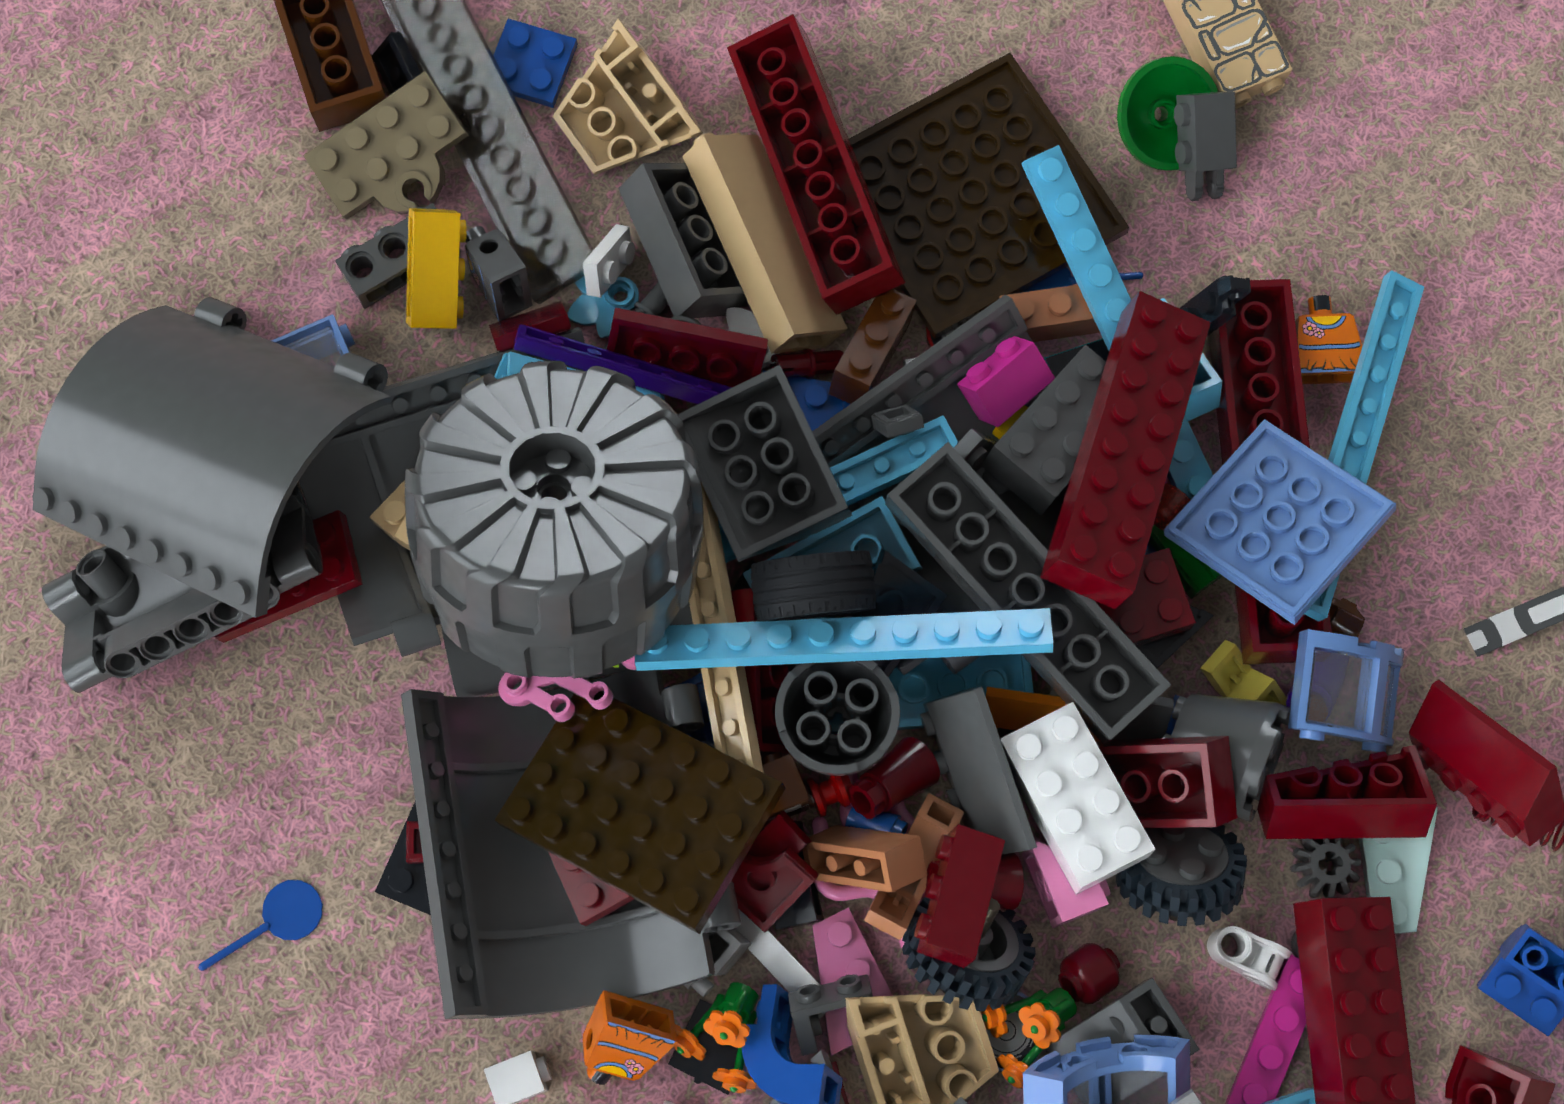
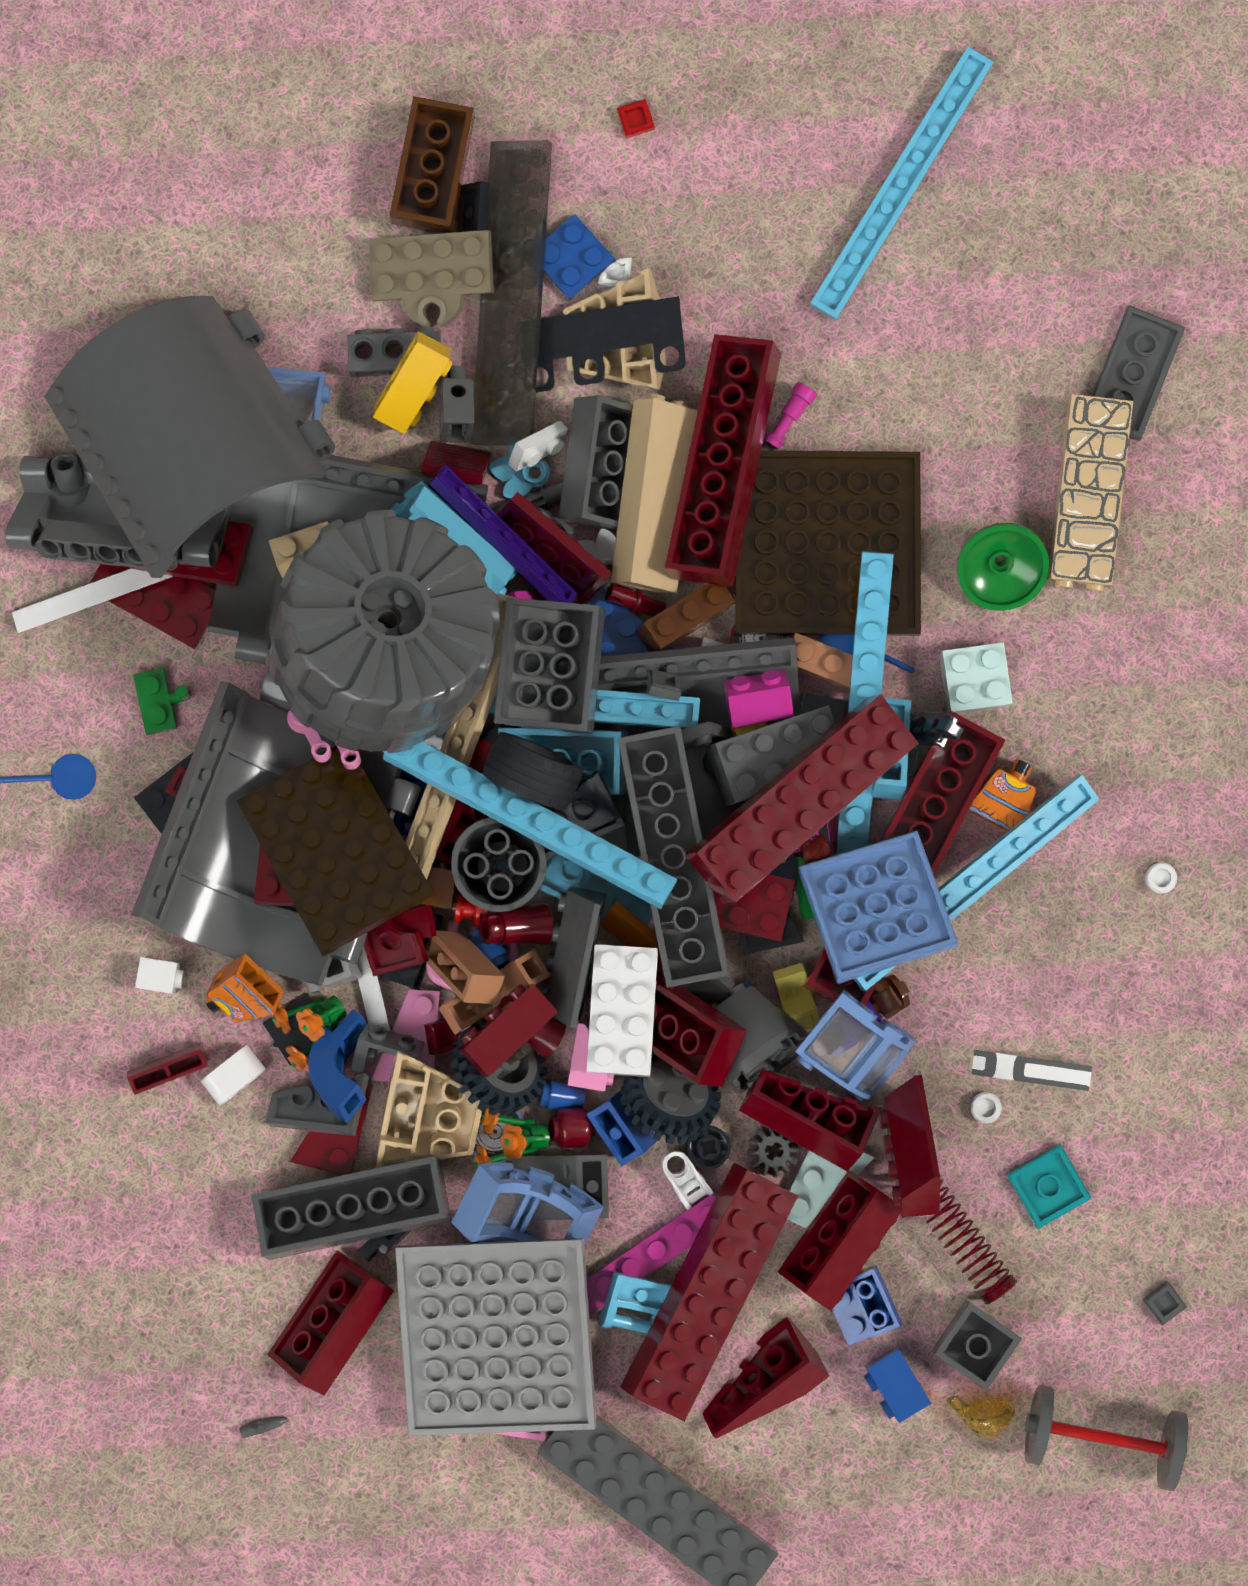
camera: 25 degrees right, 10 degrees up
(195, 701) = (82, 598): none -> white sticker
(287, 655) = (173, 605): none -> dark red plate
(342, 769) = (157, 701): none -> green plate
(584, 52) = (615, 273): none -> white tile
(601, 114) = (612, 328): none -> black piece
(854, 66) = (800, 398): none -> dark pink piece
(881, 956) = (439, 1037): none -> dark red tile
(1056, 943) = (560, 1095): none -> blue cone
(1146, 941) = (617, 1130): none -> blue brick
(1205, 140) = (1016, 600): dark grey hinge -> none
(1214, 240) = (975, 678): none -> light aqua brick
(1259, 905) = (710, 1149): none -> black wheel
(1468, 919) = (840, 1240): none -> dark red brick
(1517, 682) = (985, 1107): none -> white tile
(1534, 337) = (1161, 878): none -> white tile

